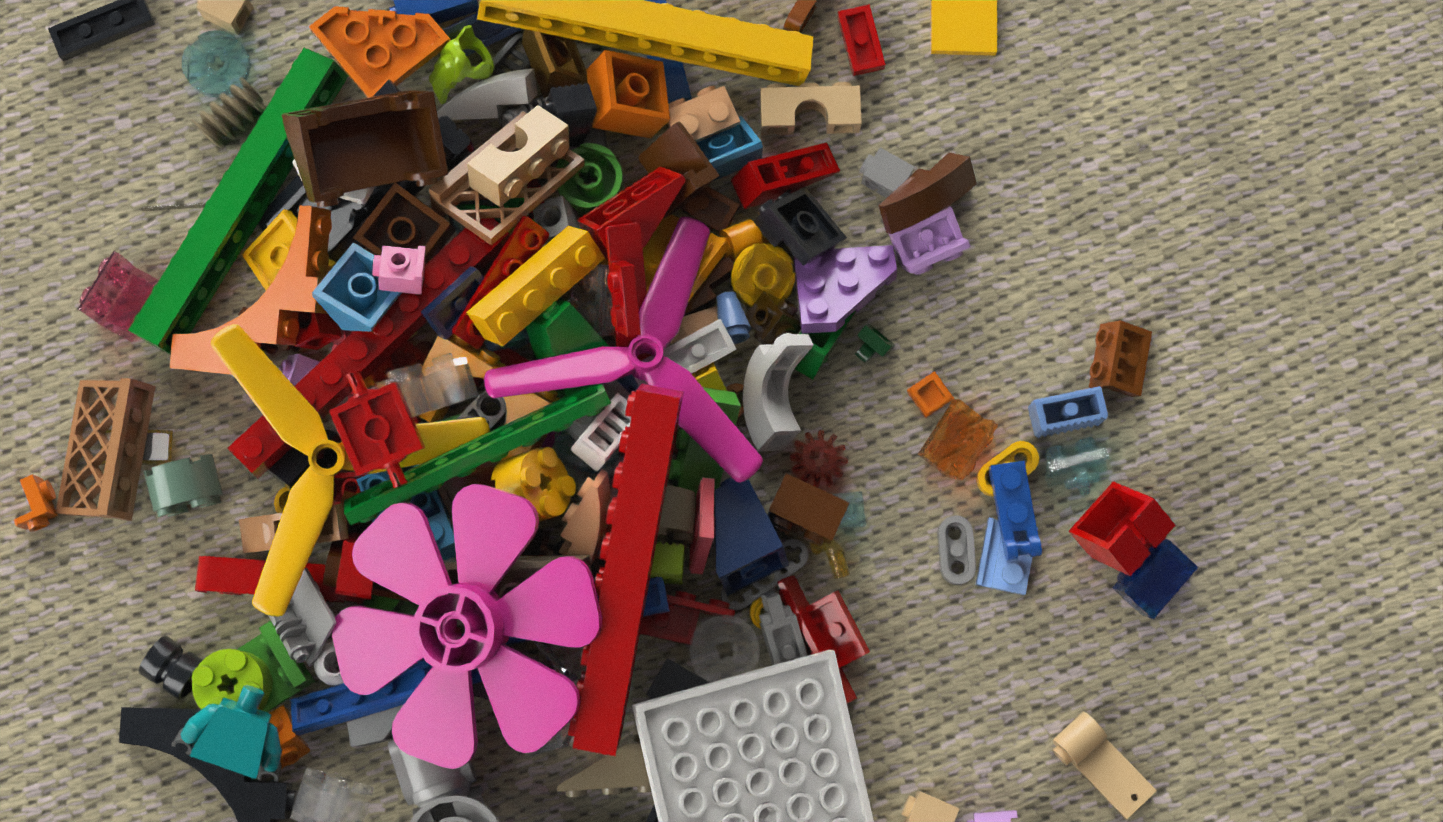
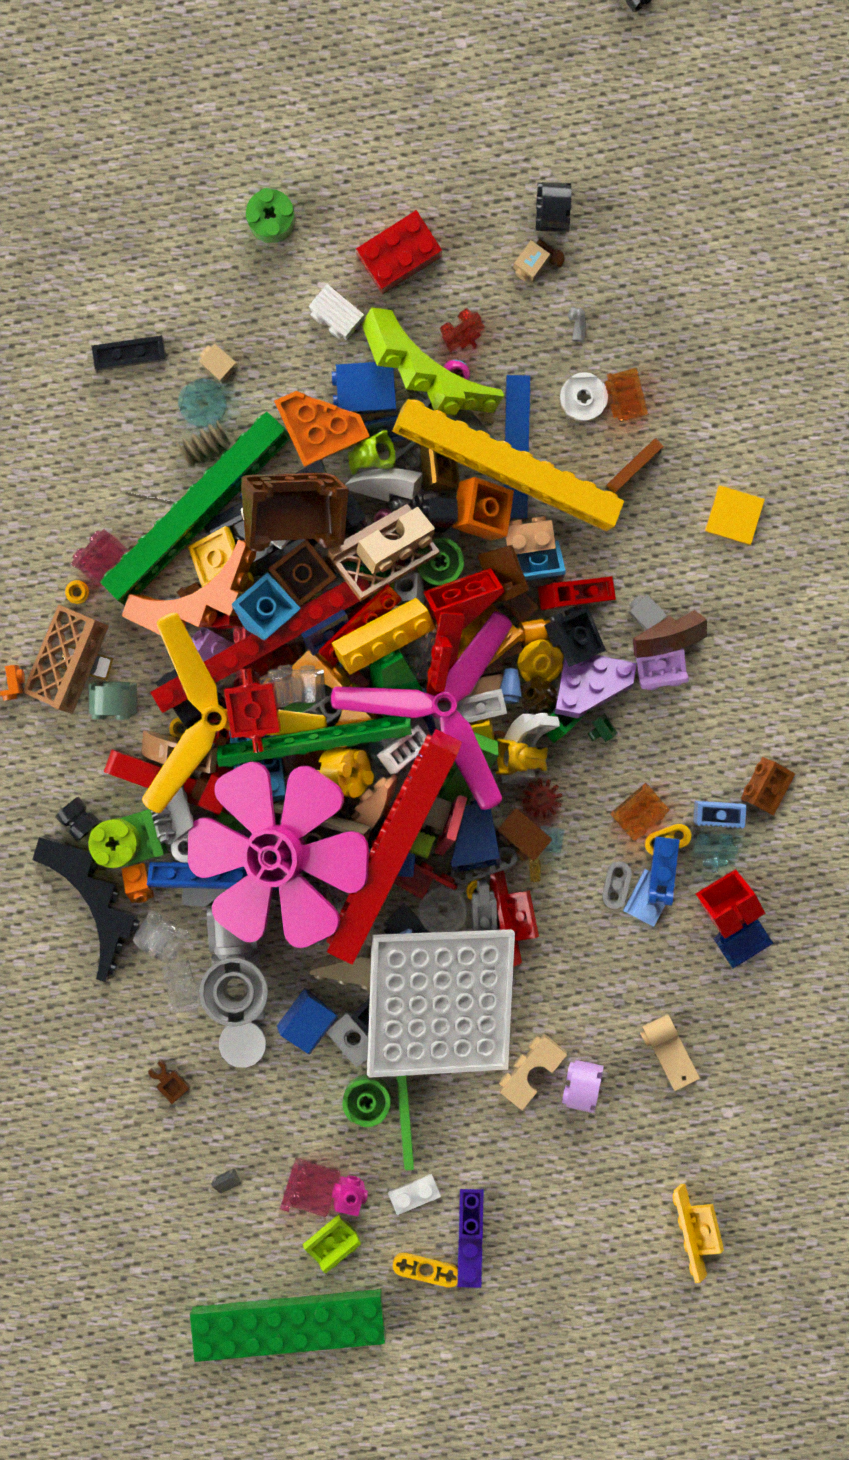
camera: 15 degrees right, 10 degrees up
(95, 348) = (77, 584): none -> yellow plate
(235, 736) = (109, 880): teal torso -> none
(400, 269) = (296, 611): bright pink brick -> none
(772, 407) = (520, 757): none -> yellow hair
(837, 103) = (628, 553): tan arch -> none
(861, 40) = (657, 509): red plate -> none
(930, 394) = (631, 774): orange tile -> none

